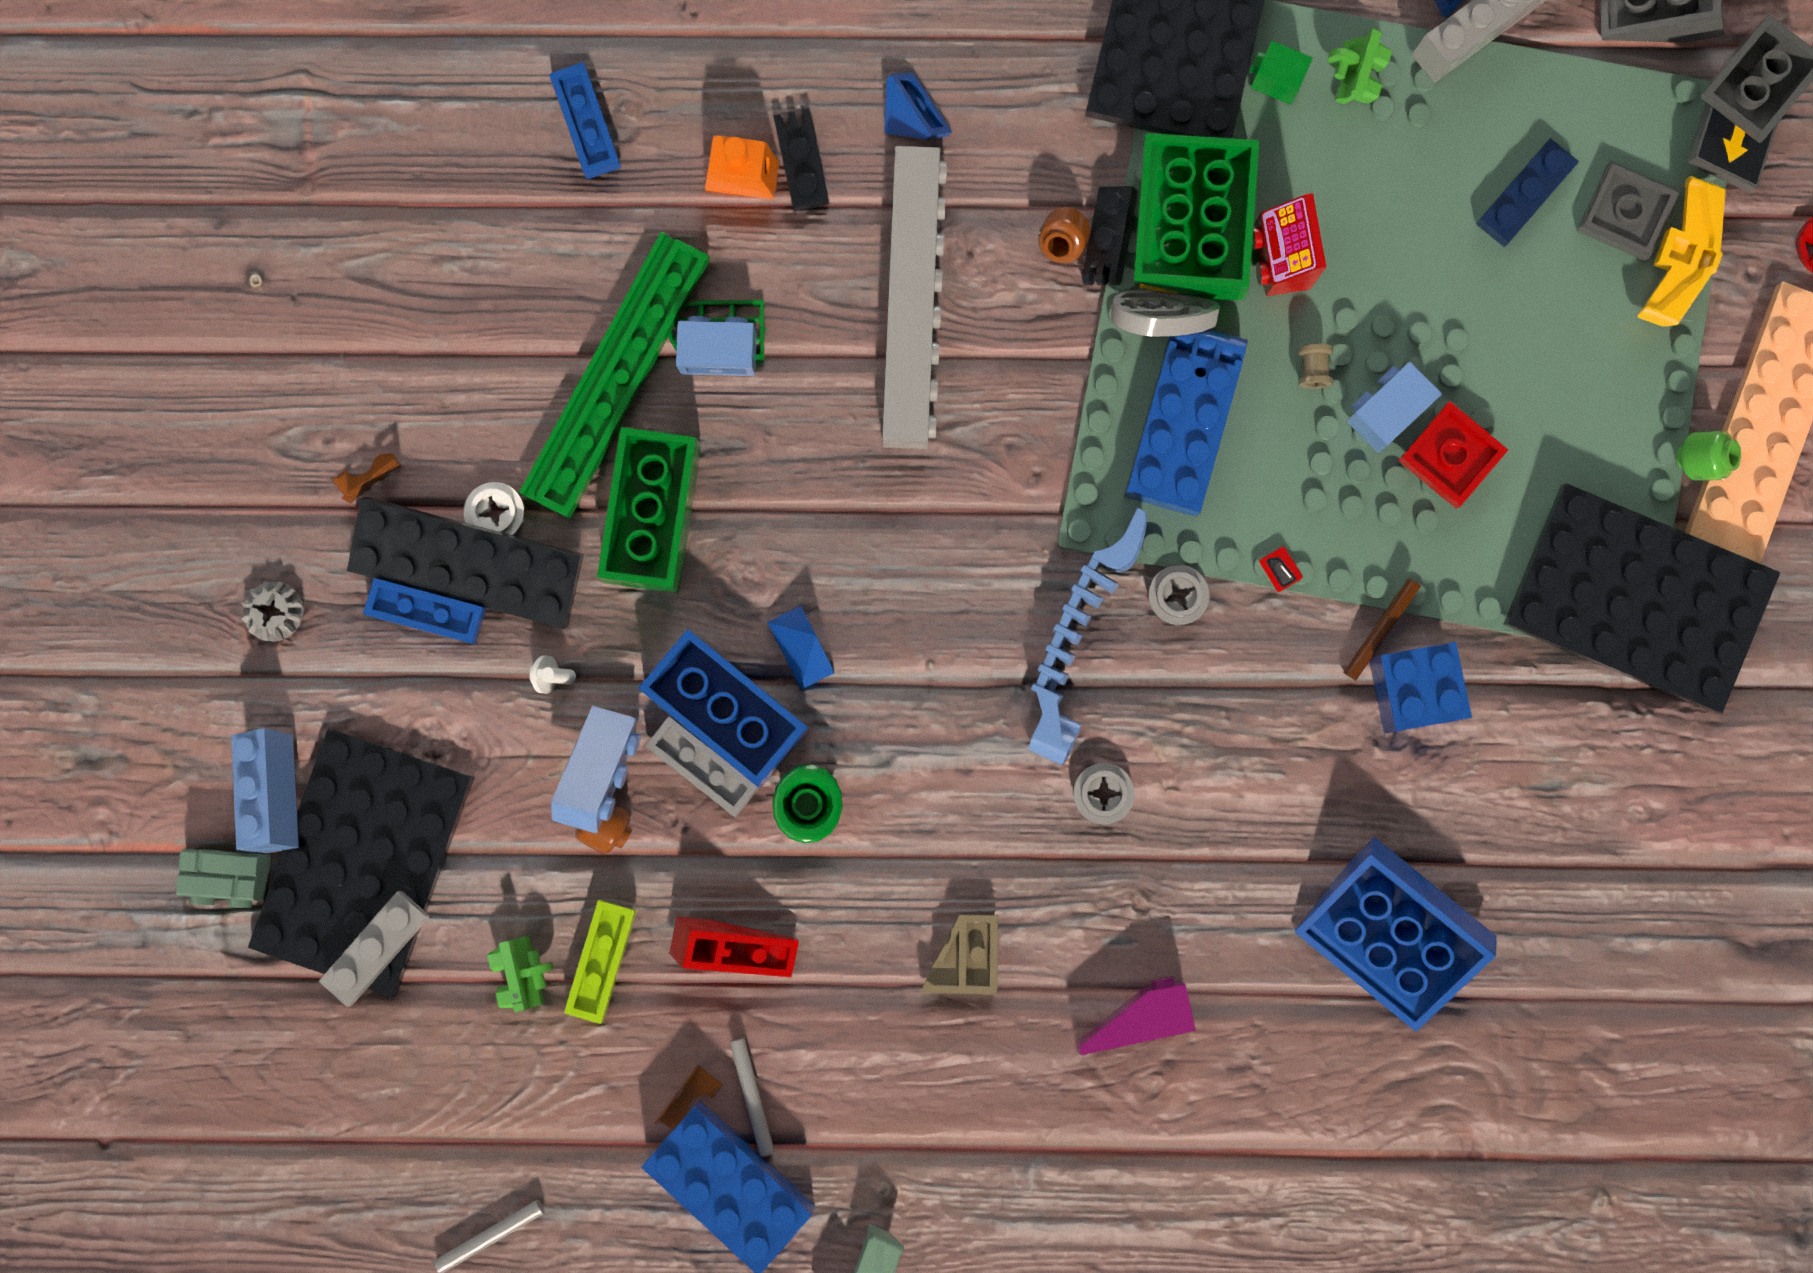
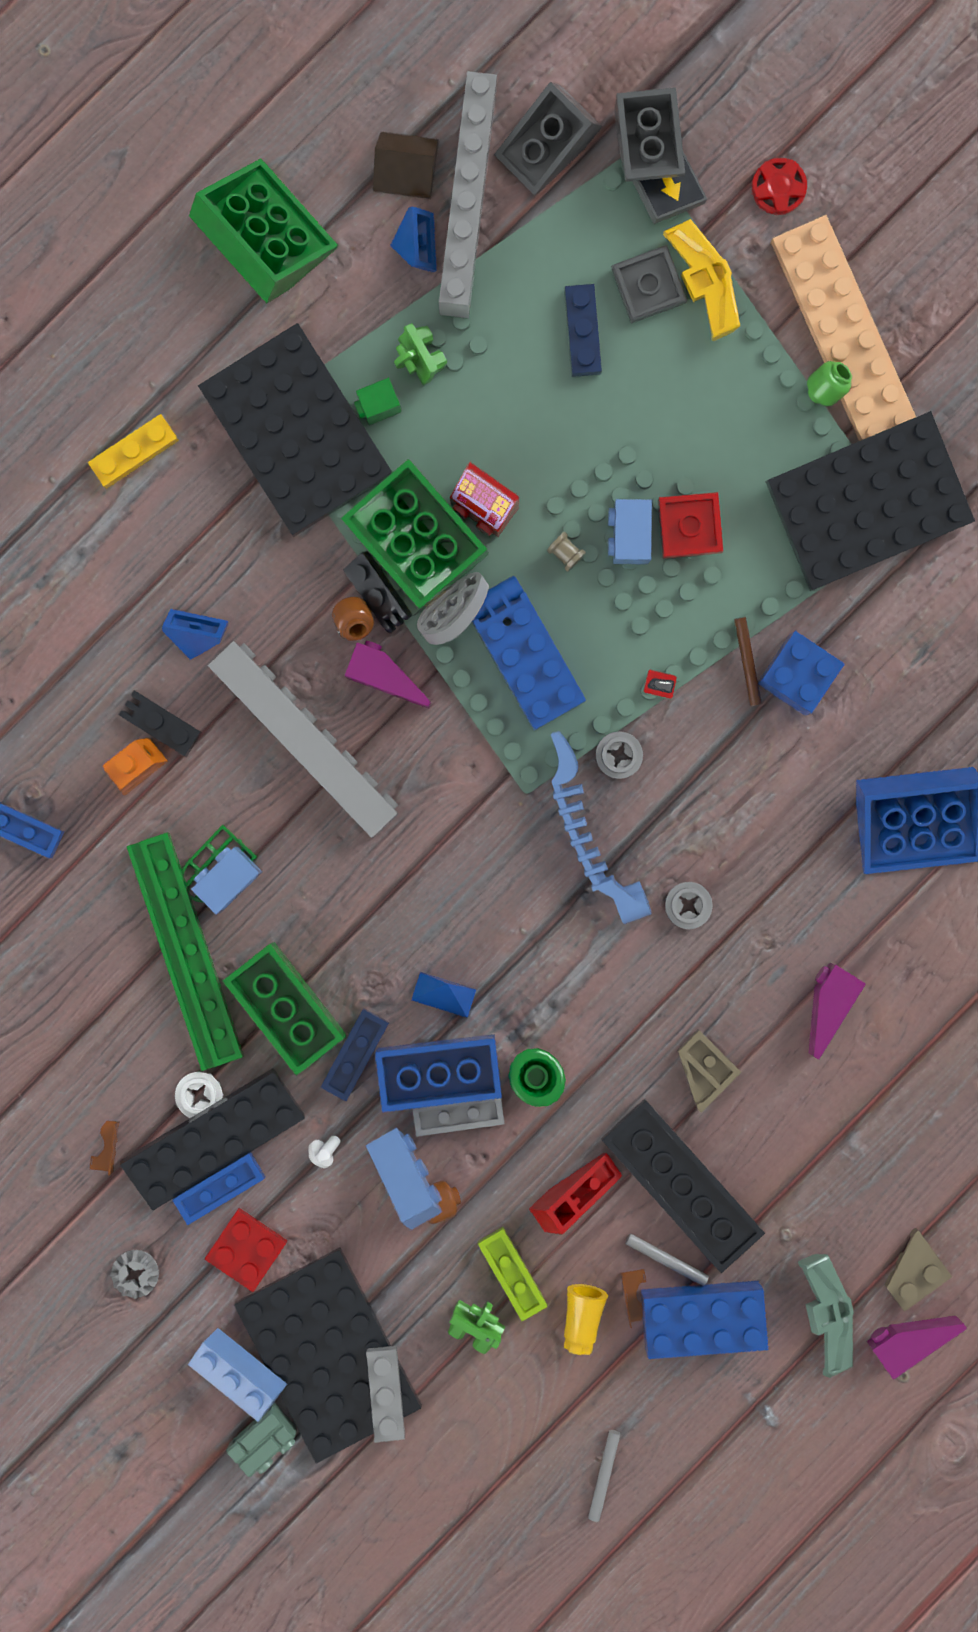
camera: 50 degrees left, 5 degrees up
(390, 691) = (246, 1250): none -> red plate
(621, 1068) = (583, 1317): none -> yellow plant
(667, 617) = (354, 1054): none -> dark blue plate
(836, 1044) = (683, 1186): none -> black plate
(1038, 303) = (378, 671): none -> magenta slope

